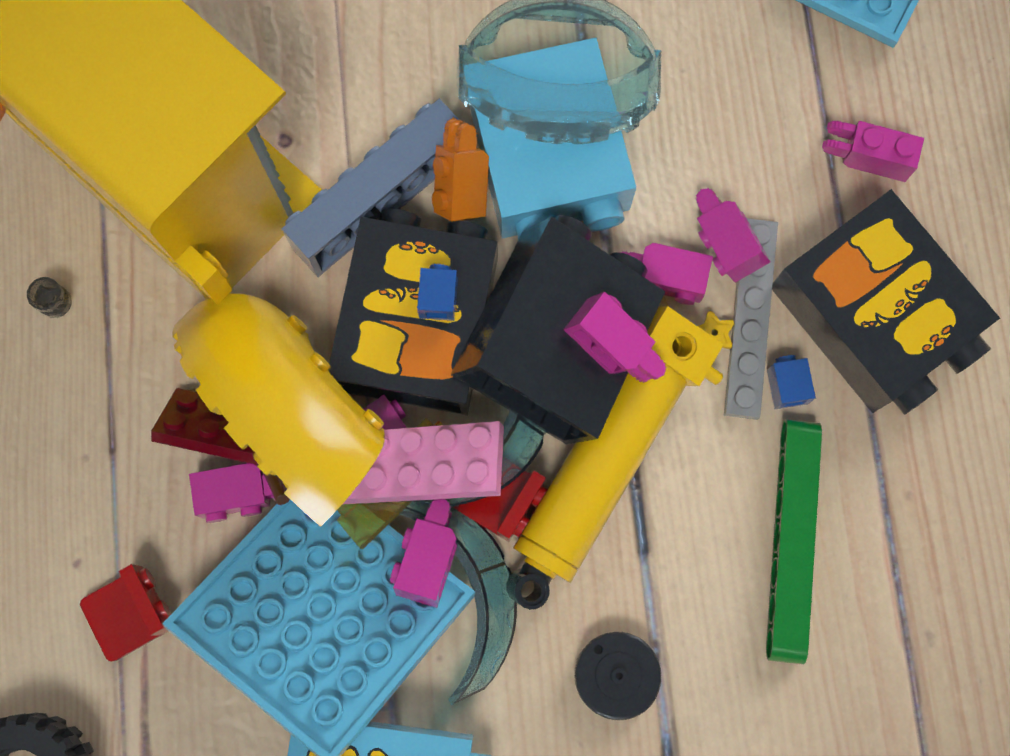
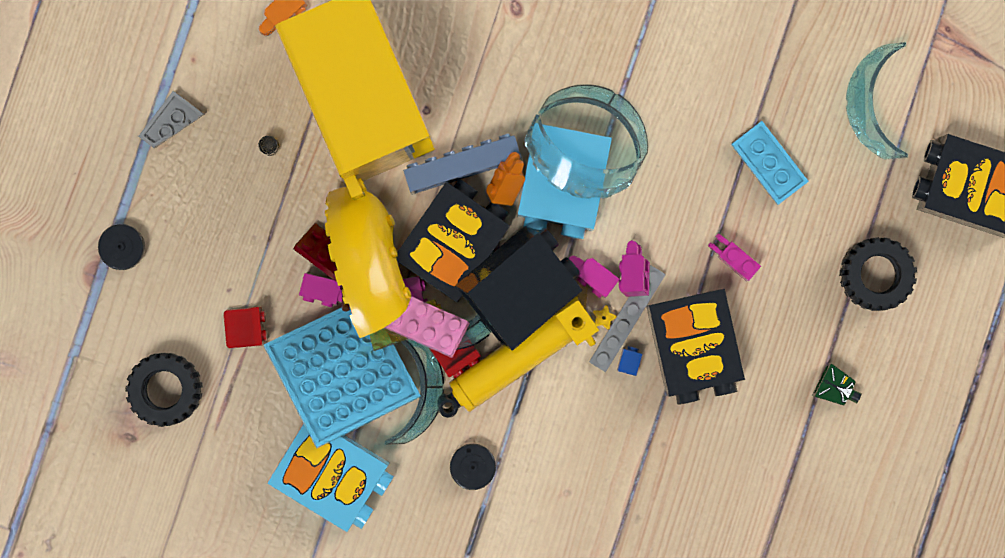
camera: 30 degrees right, 10 degrees up
(427, 556) = (404, 370): dark pink hinge -> none
(437, 293) = (467, 241): blue brick -> none
(615, 339) = (542, 306): dark pink hinge -> none
(794, 542) = (592, 440): green beam -> none

